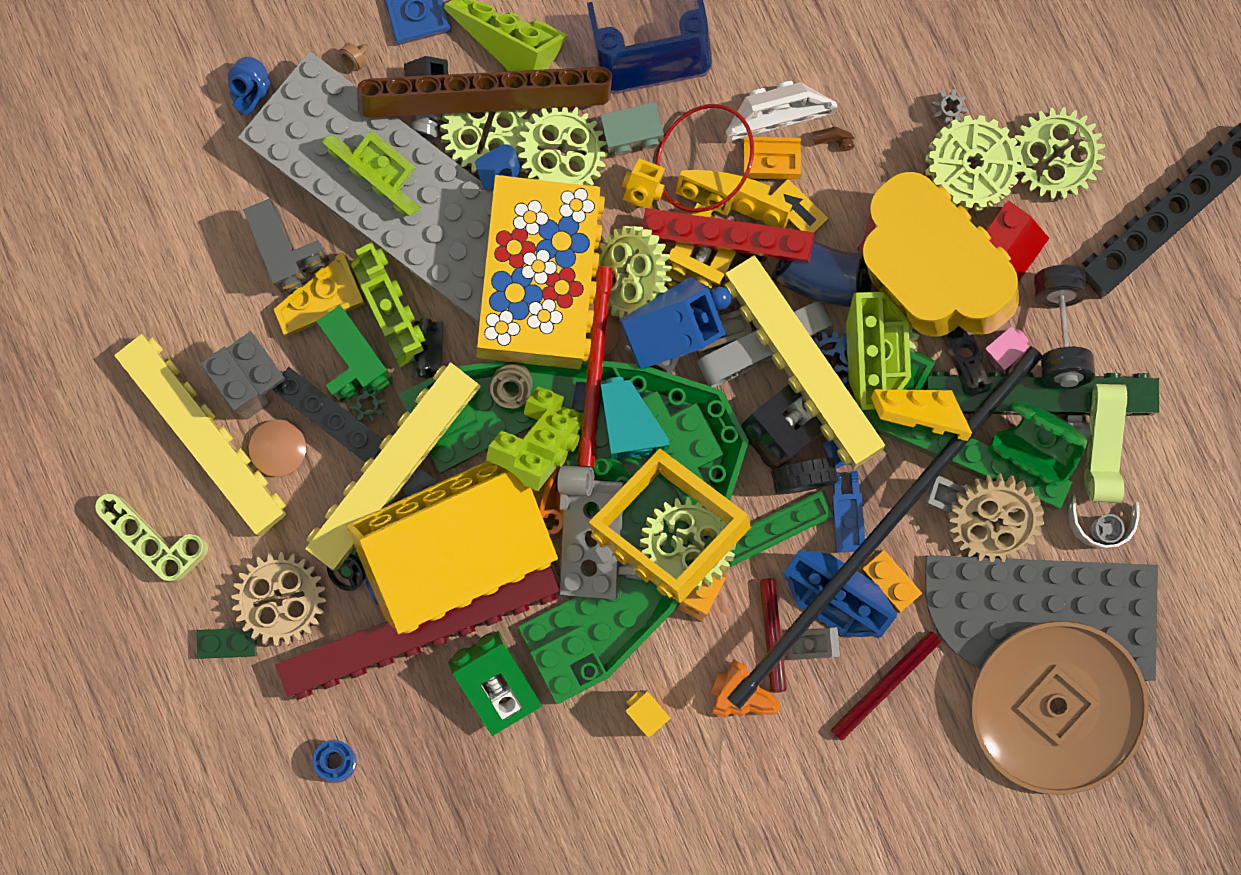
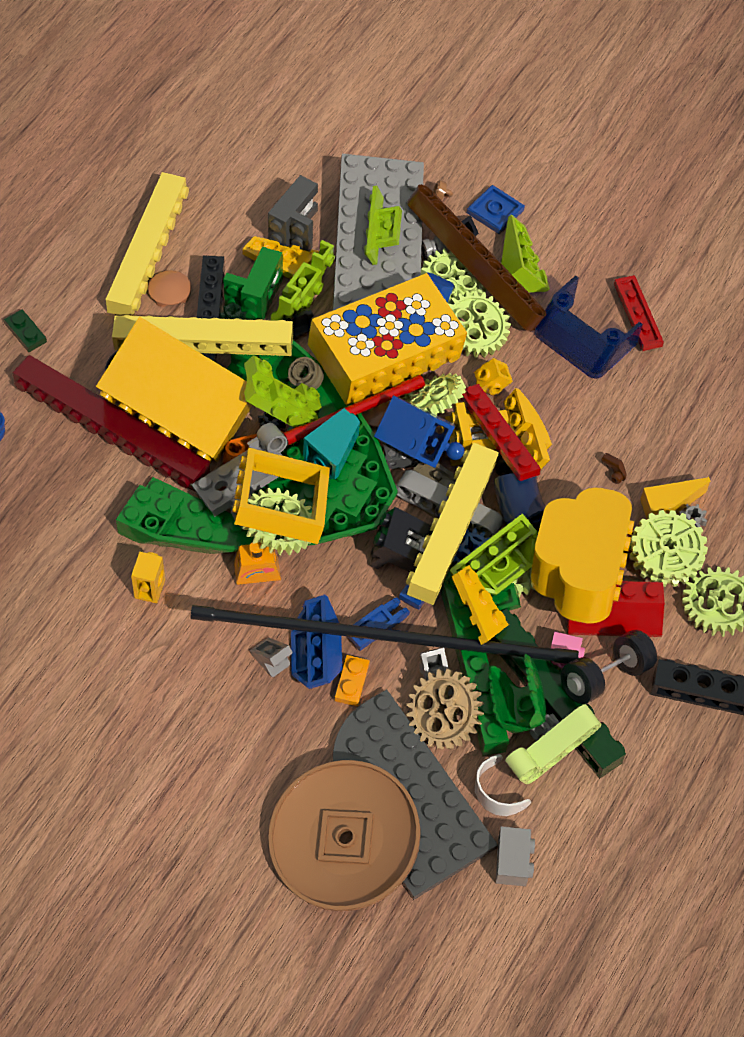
camera: 50 degrees right, 25 degrees down
(145, 534) = (56, 268): yellowish green beam -> none
(244, 374) = (196, 230): dark grey brick -> none
(247, 84) = (379, 146): blue head -> none
(283, 625) = (71, 333): tan gear -> none
(480, 665) = (123, 467): green brick -> none
(632, 129) = (522, 351): sand green brick -> none
(738, 115) = (541, 414): red piece -> none
(760, 702) = (203, 635): orange rock -> none
(772, 631) = (255, 632): dark red axle -> none
(773, 158) = (571, 440): light orange plate -> none
(779, 109) = (601, 422): white wedge -> none
(782, 526) = (336, 589): green tile -> none
(804, 213) = (552, 476): yellow tile -> none
(804, 476) = (380, 574): black tyre -> none
(885, 685) = (276, 720): dark red axle -> none
(912, 115) = (672, 496): none -> yellow slope
(970, 368) = (532, 629): black piece -> none
(1111, 526) = (497, 787): light grey wheel -> none
(1181, 558) = (514, 856): none -> light grey brick

